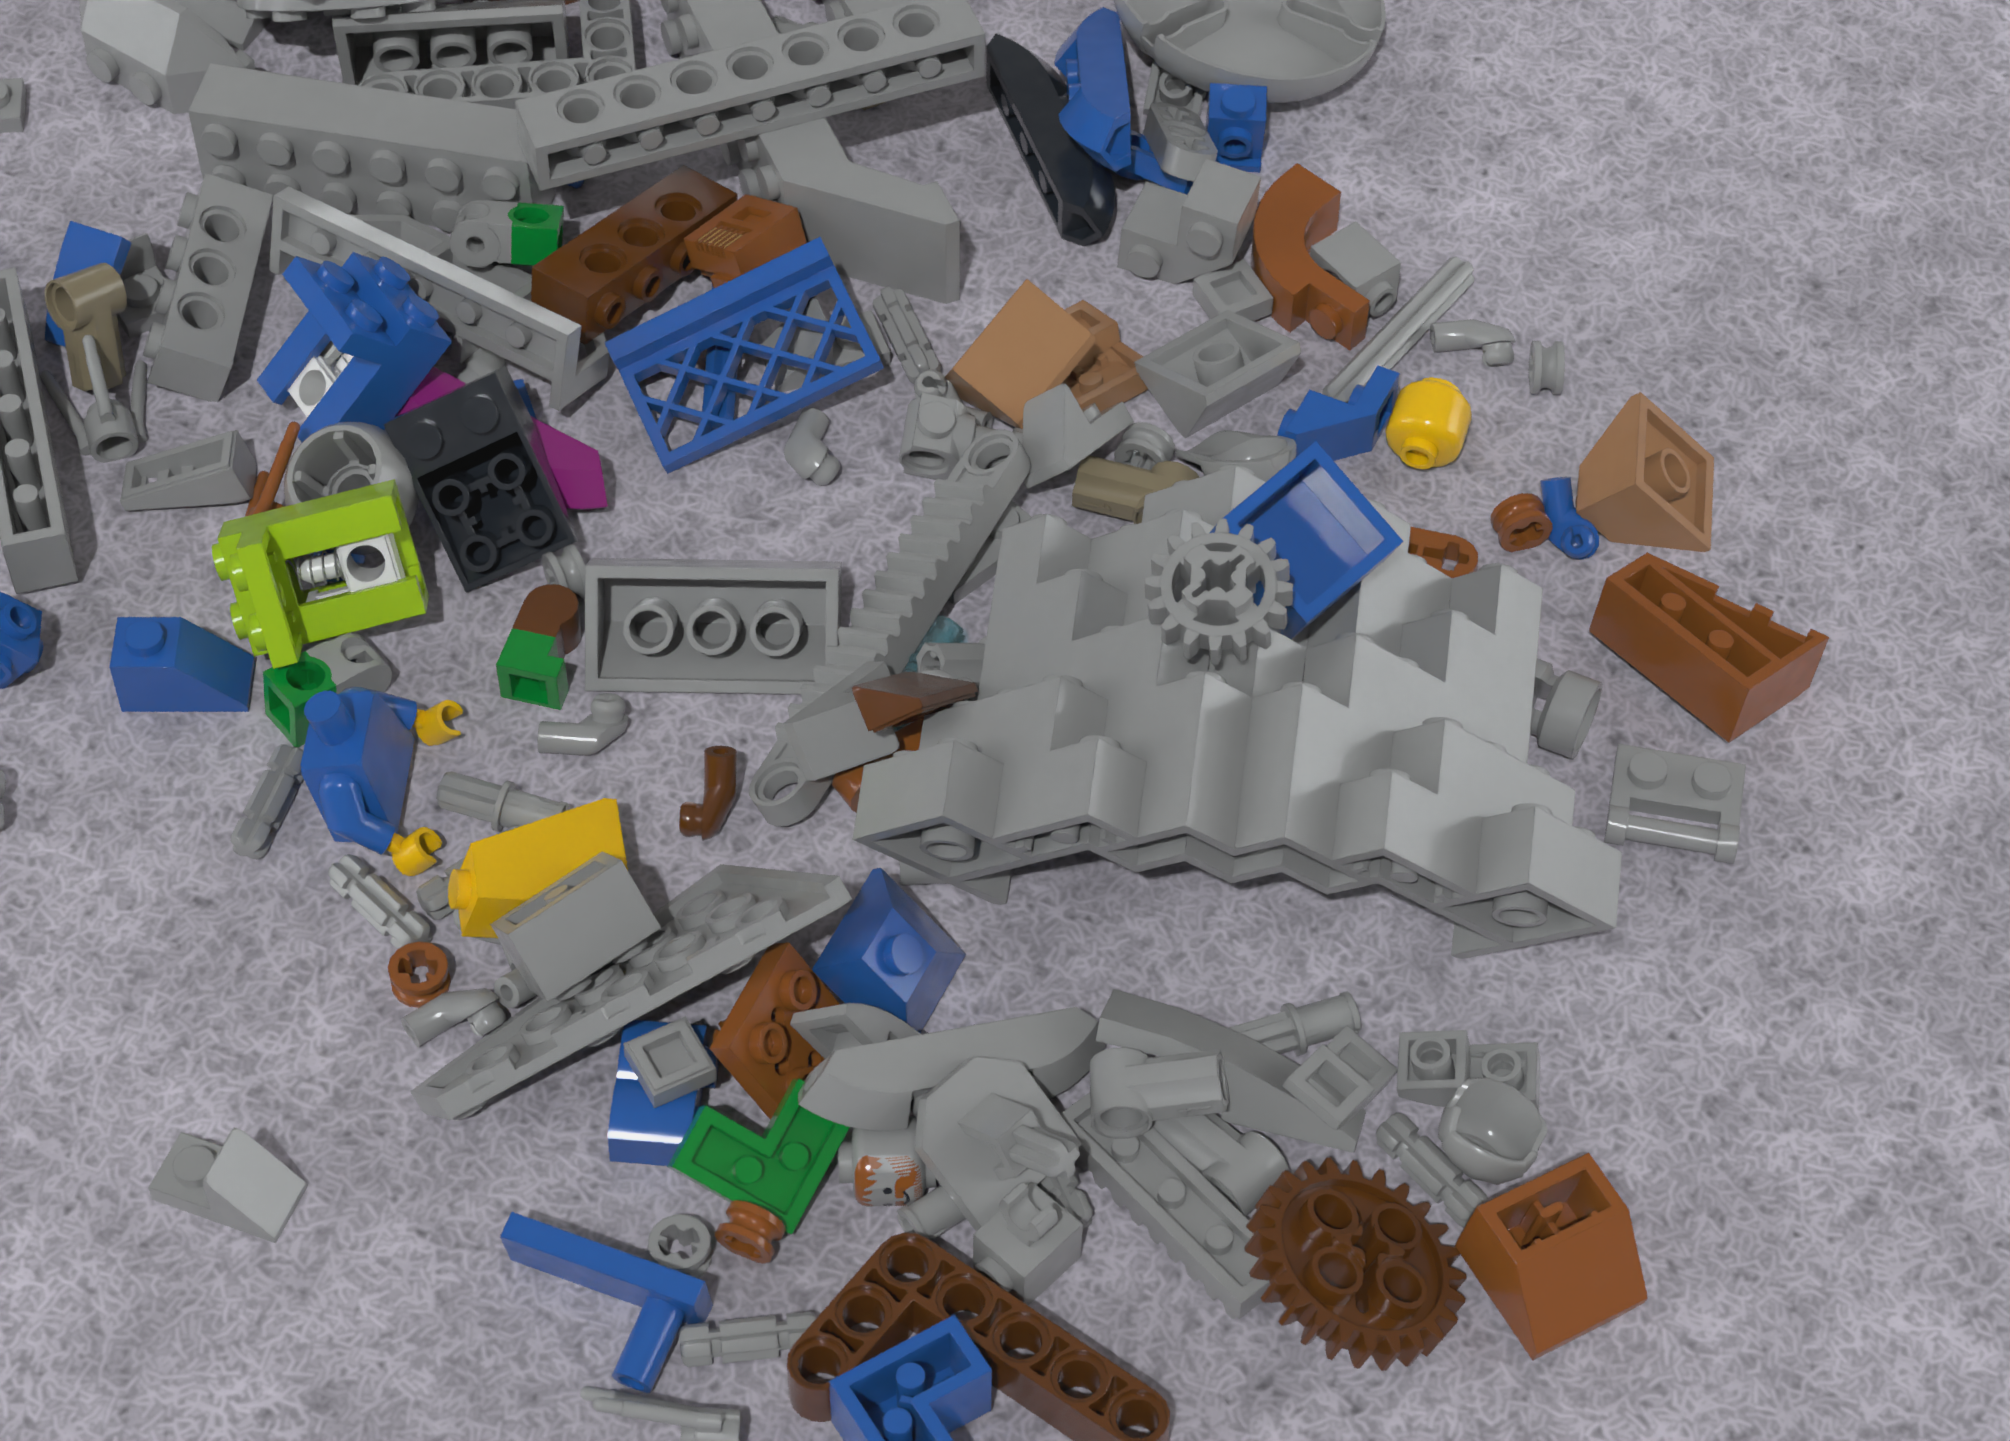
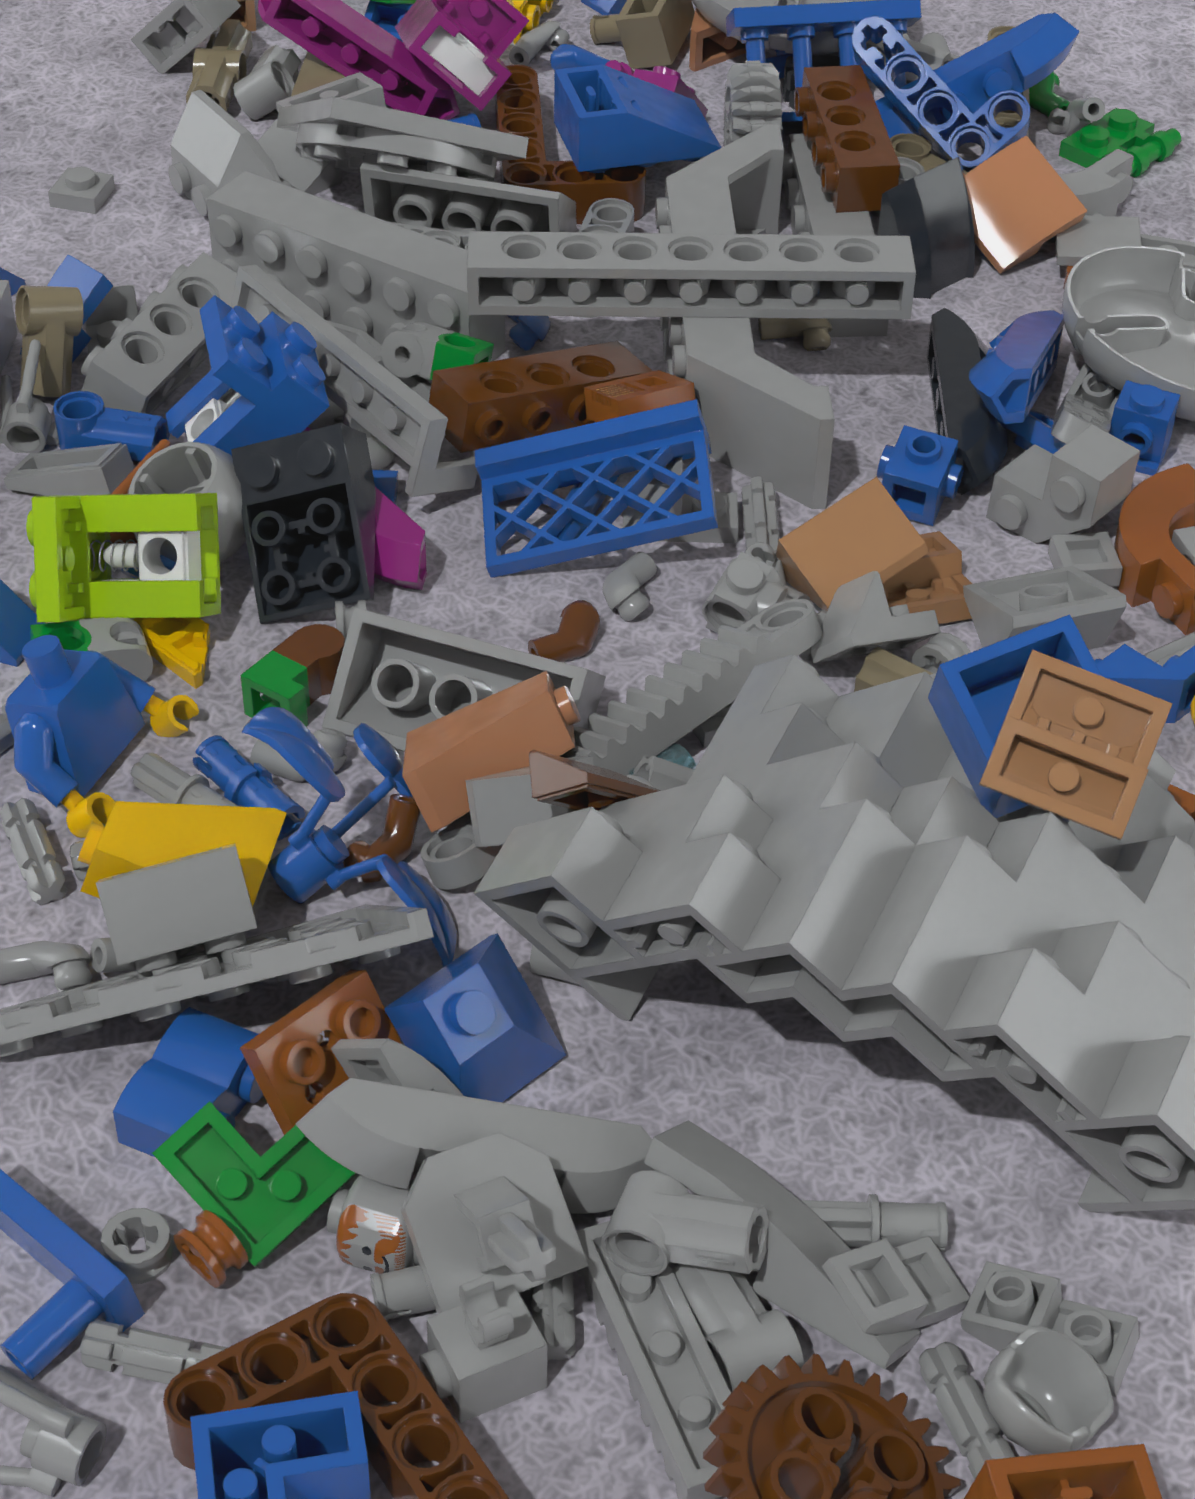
camera: 20 degrees right, 10 degrees down
(183, 416) = (86, 422): none -> blue piece
(405, 646) = (179, 645): none -> yellow tile
(417, 955) = (33, 903): dark orange bush -> none
(547, 774) = (245, 783): none -> blue pin
(661, 828) = (317, 855): none -> blue plant
(670, 1062) = (204, 1055): light grey tile -> none
(774, 675) = (485, 741): none -> nougat slope
(783, 523) = (574, 636): none -> reddish brown arm
(1044, 243) = (923, 464): none -> blue brick
(1218, 591) = (907, 726): light grey gear -> none
(1358, 565) = (1076, 744): none -> medium nougat slope

